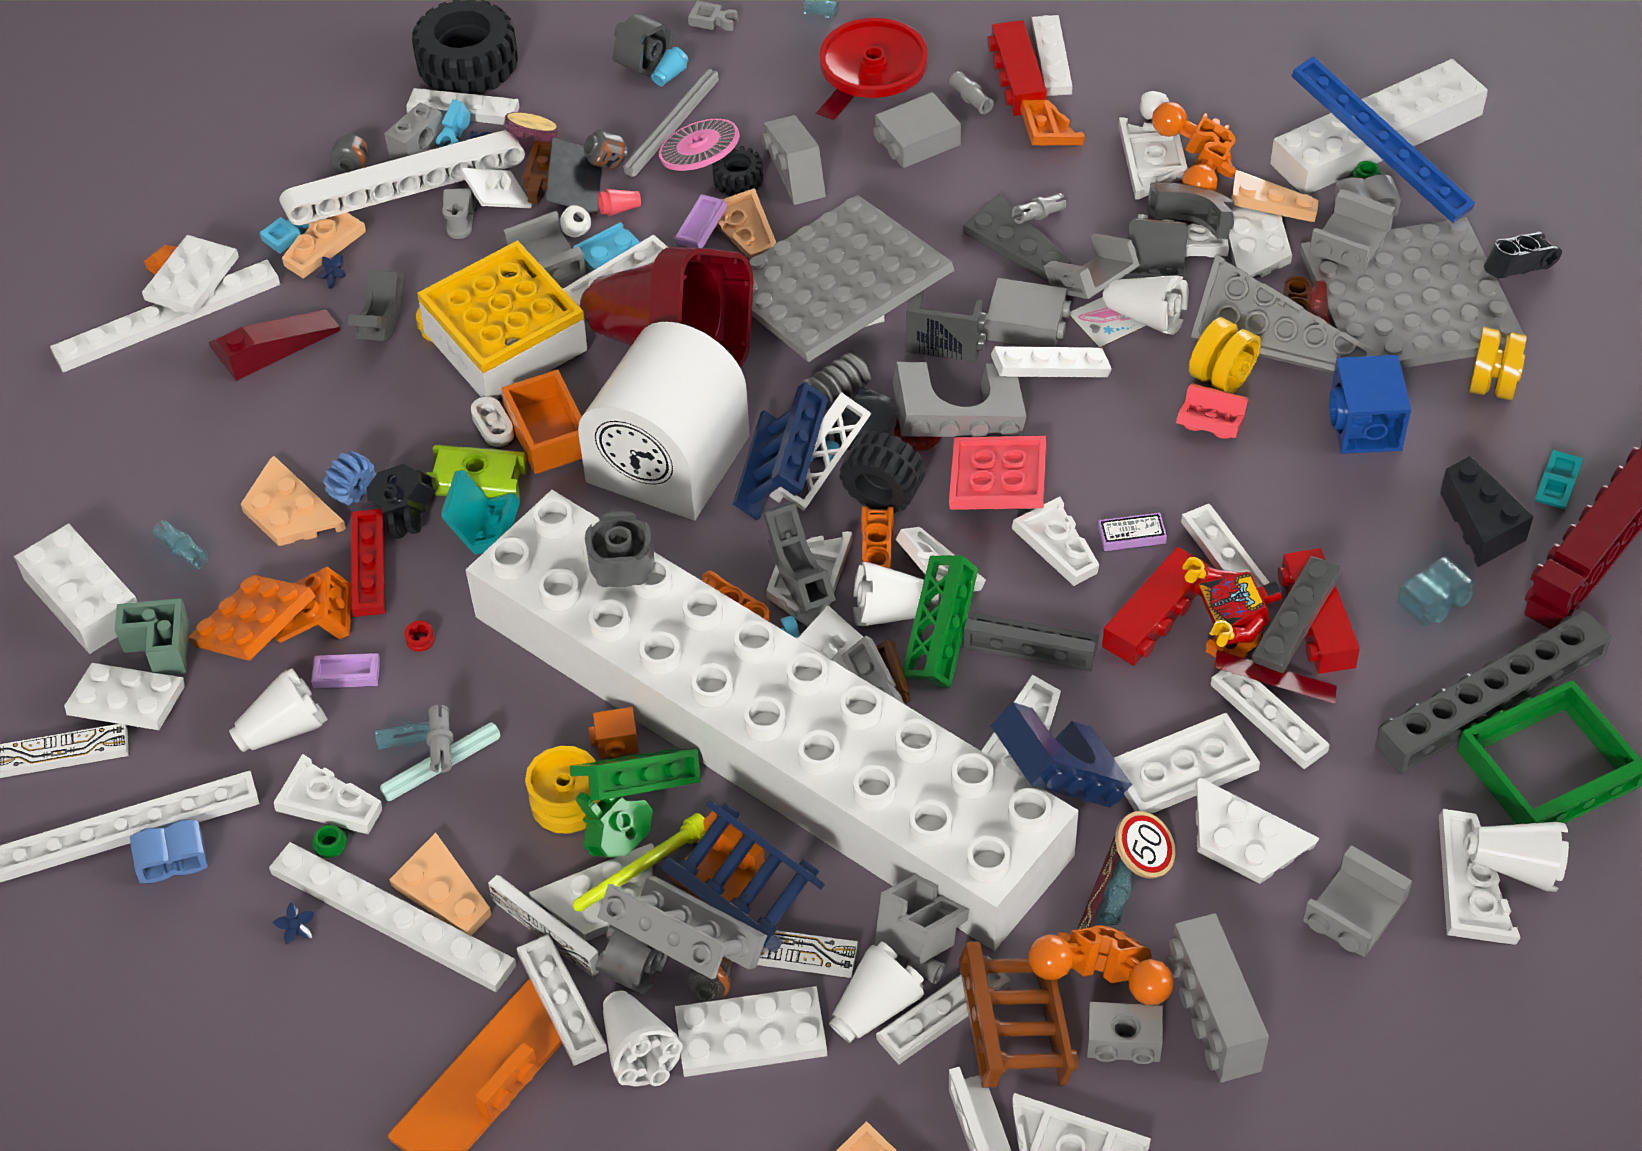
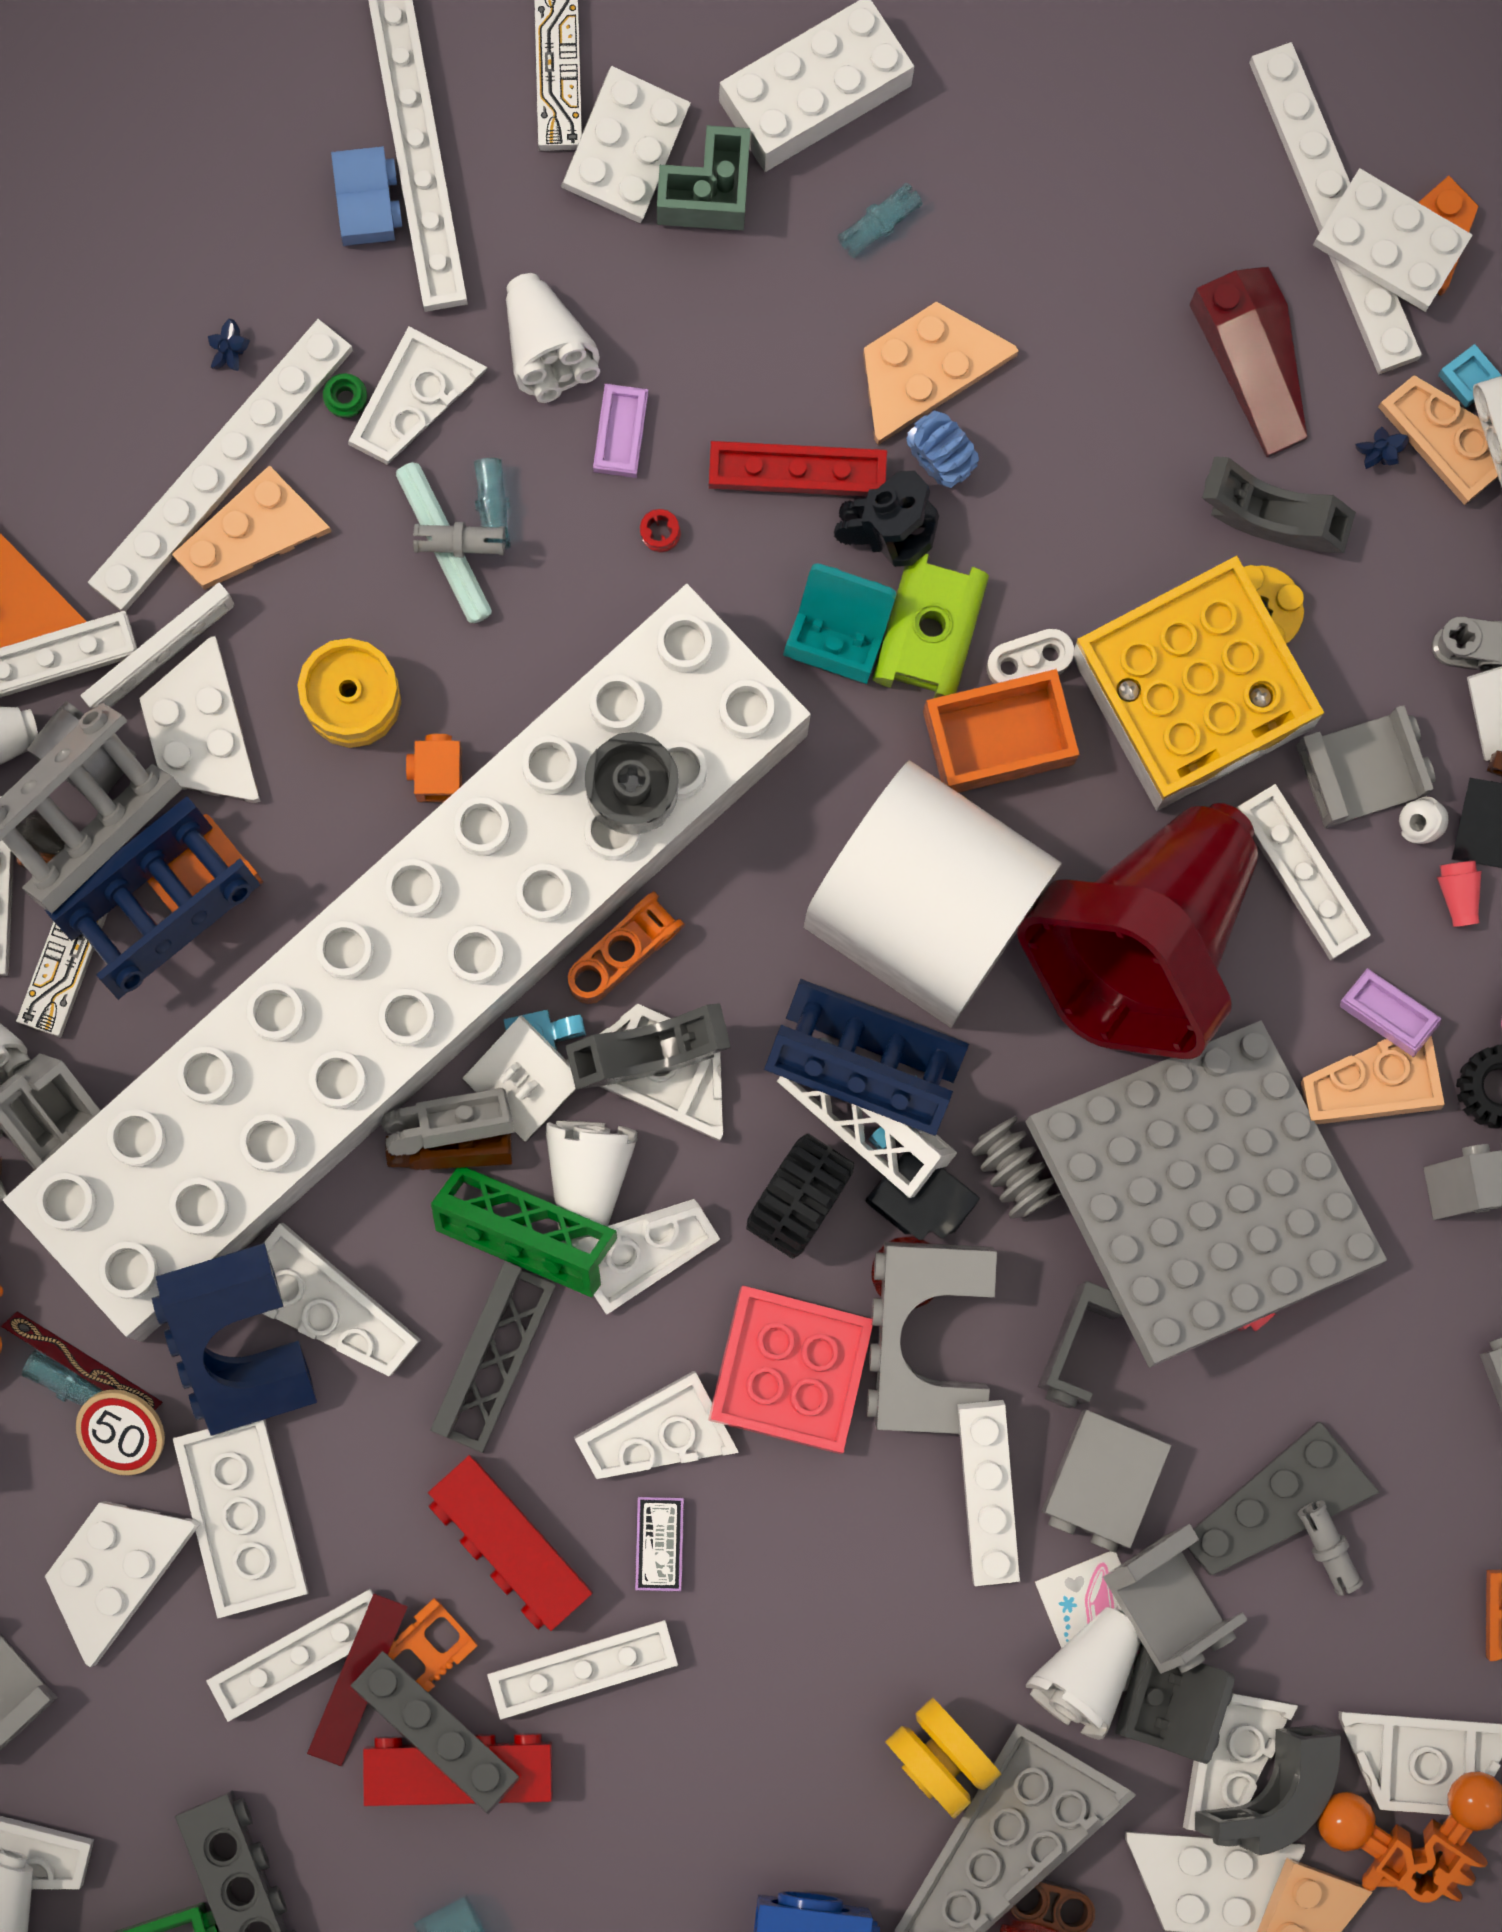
camera: 90 degrees right, 30 degrees up
(251, 617) = (714, 307): orange plate -> none
(328, 609) = (728, 393): orange bracket -> none
(606, 246) = (1364, 864): medium azure plate -> none
(612, 823) = (282, 748): green hinge -> none
(640, 773) = (332, 791): green fence -> none
(690, 832) = (263, 850): neon yellow piece -> none
(877, 536) = (722, 1173): orange piece -> none
(1212, 411) = (851, 1715): coral bracket -> none
(1232, 601) = (470, 1647): torso -> none

